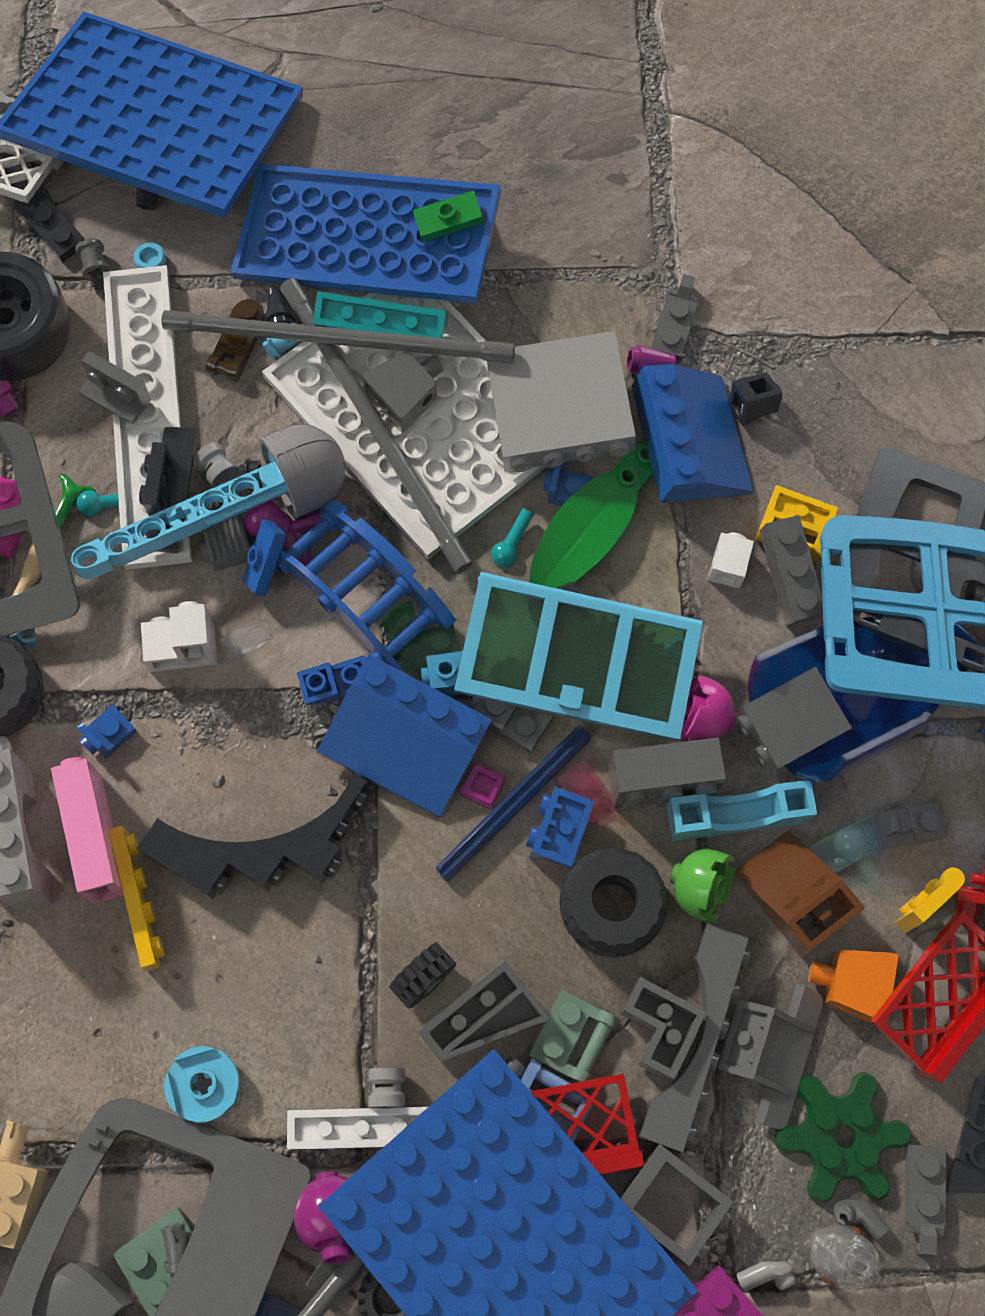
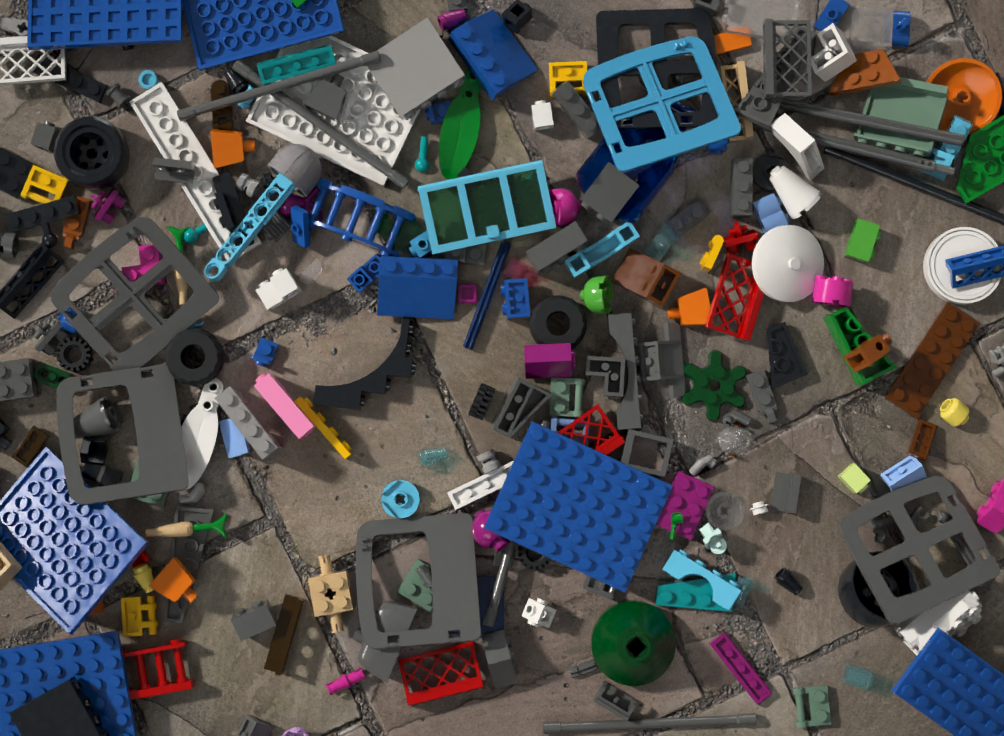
camera: 20 degrees left, 15 degrees up
(216, 397) = (229, 147): none -> orange torso
(292, 1033) = (431, 456): none -> clear light blue cone
(570, 956) = (549, 360): none -> magenta brick

